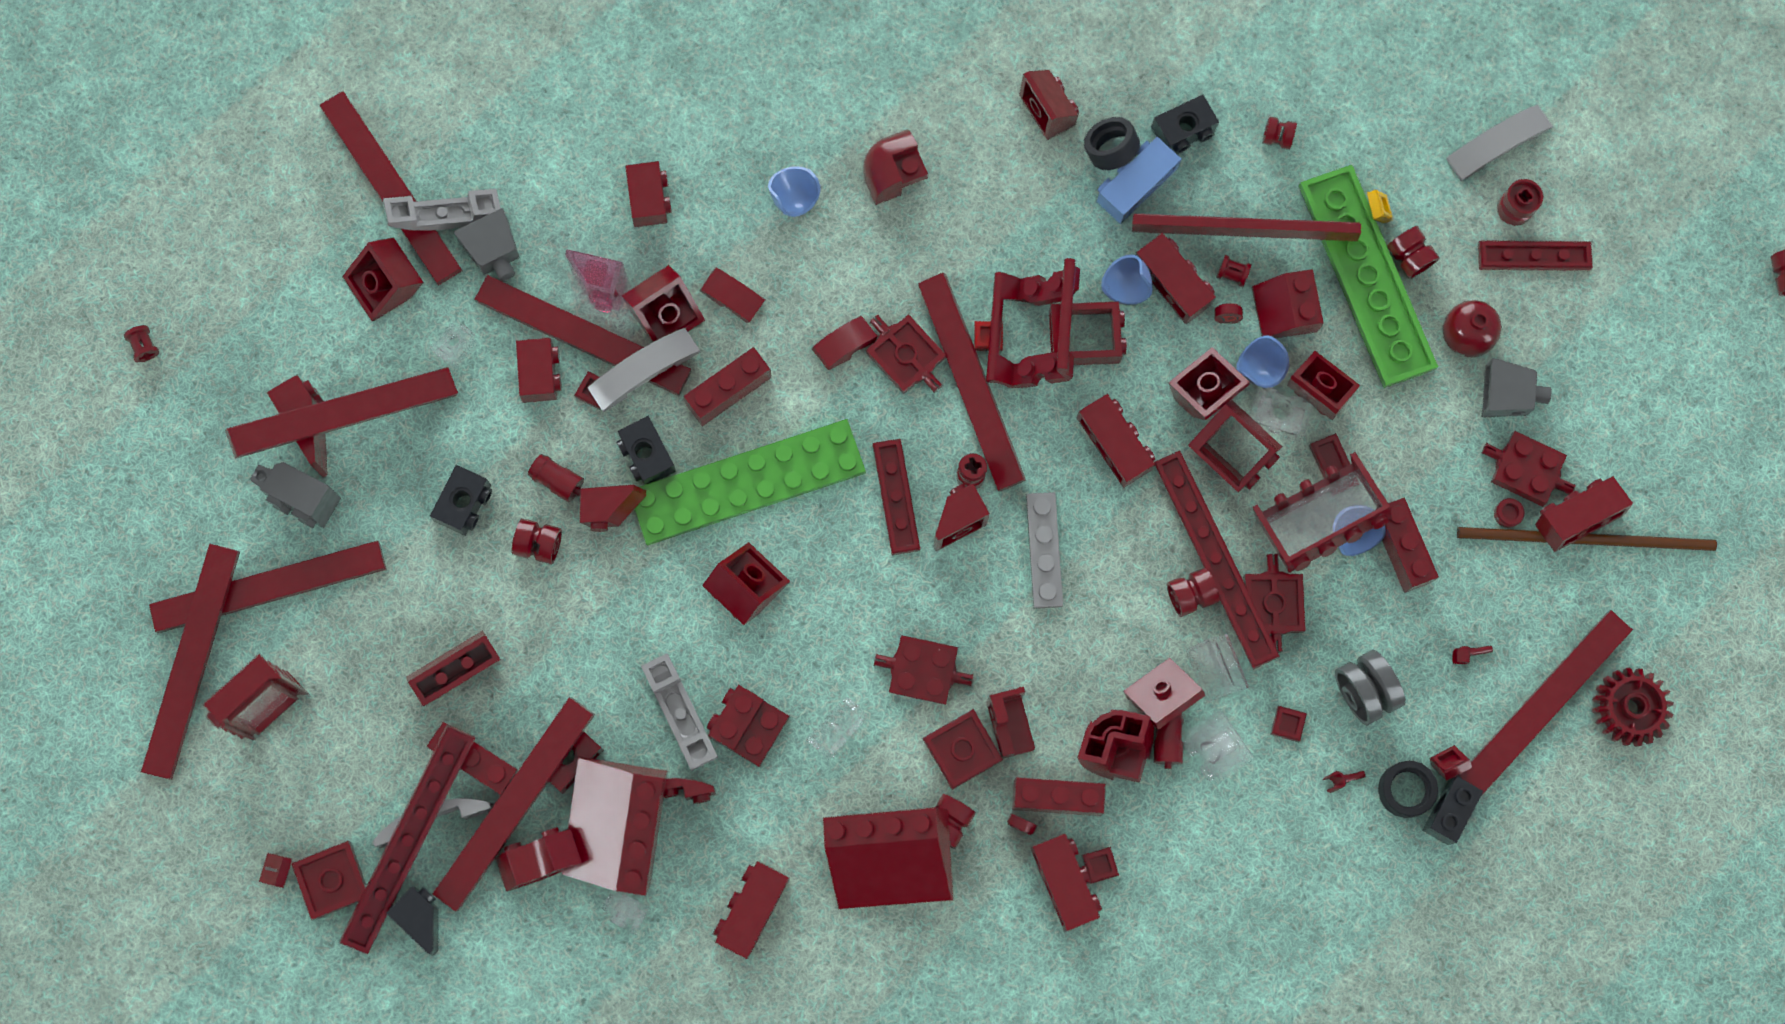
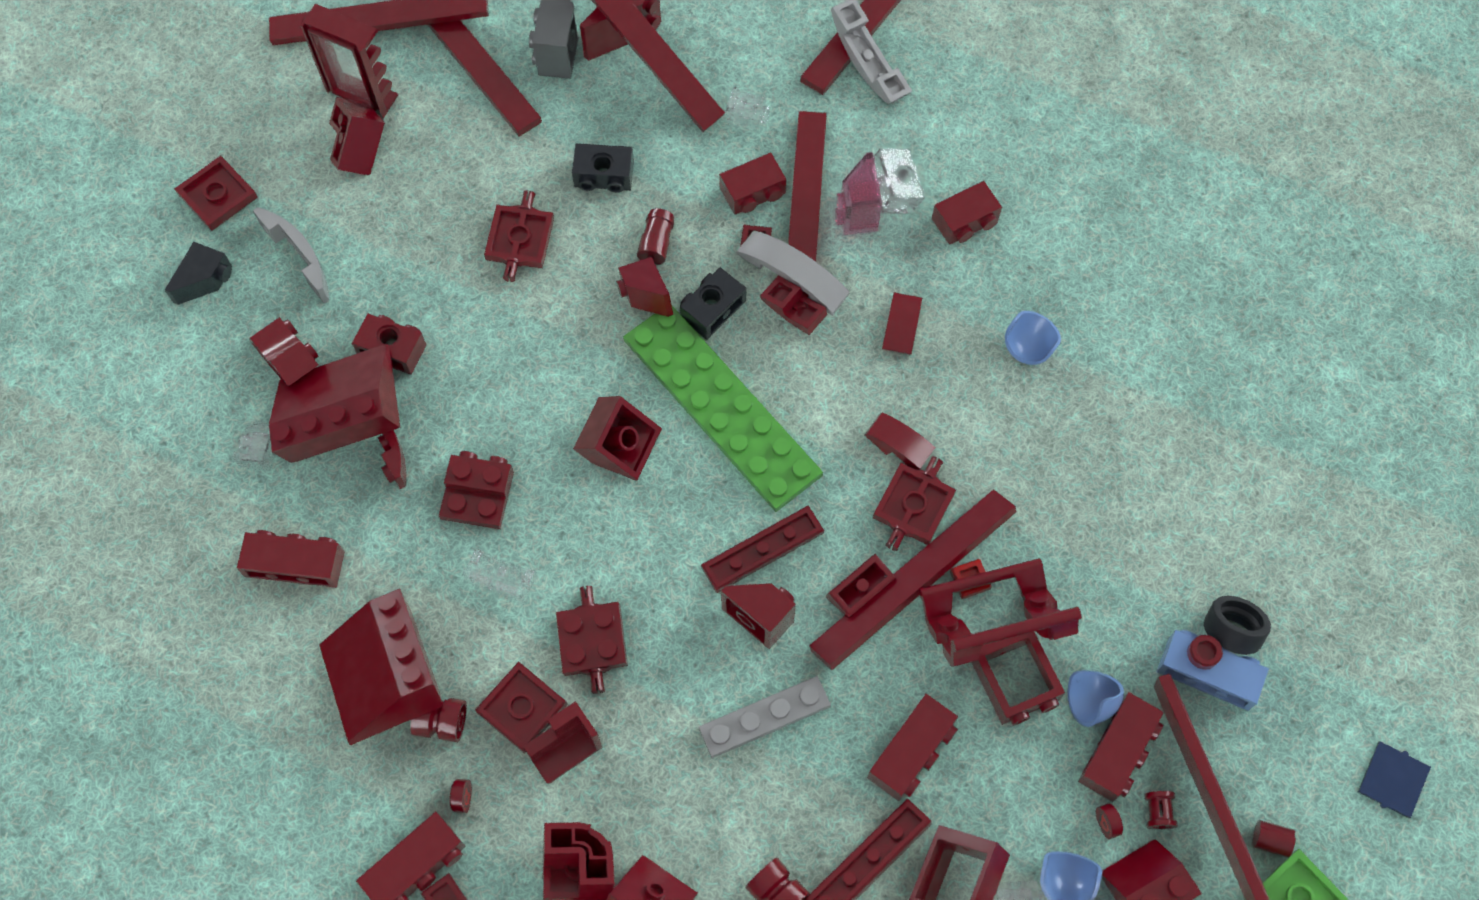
camera: 75 degrees right, 10 degrees down
(275, 870) = (211, 147): dark red tile -> none
(325, 719) = (357, 135): none -> dark red panel
(382, 277) = (786, 32): dark red slope -> none
(407, 839) = (269, 232): dark red tile -> none
(452, 668) = (440, 214): dark red brick -> none
(482, 765) = (361, 264): dark red brick -> none
(490, 244) = (857, 104): dark grey torso -> none
(501, 603) = (519, 236): none -> dark red plate
(513, 804) = (329, 309): dark red tile -> none
(536, 541) = (587, 241): dark red wheel -> none
(590, 237) = (898, 181): none -> clear brick
(663, 304) = (863, 265): dark red slope -> none
(677, 382) = (792, 305): none -> dark red slope
(679, 712) = (469, 426): light grey slope -> none
(727, 386) = (807, 349): dark red brick -> none
(892, 166) = (1103, 418): dark red brick -> none
(962, 427) = (861, 586): none -> dark red slope
(972, 470) = (815, 608): dark red piece -> none
(1047, 102) = (1250, 544): dark red slope -> none
(1058, 796) = (501, 823): dark red brick -> none
(1127, 178) = (1204, 652): none -> dark red tile
(1194, 113) = (1317, 700): black brick -> none
(1207, 385) = (1015, 819): dark red slope -> none
(1270, 86) = (1394, 779): none -> dark blue piece
(1273, 131) = (1344, 805): dark red wheel -> none
(1285, 197) = (1274, 838): none -> dark red piece

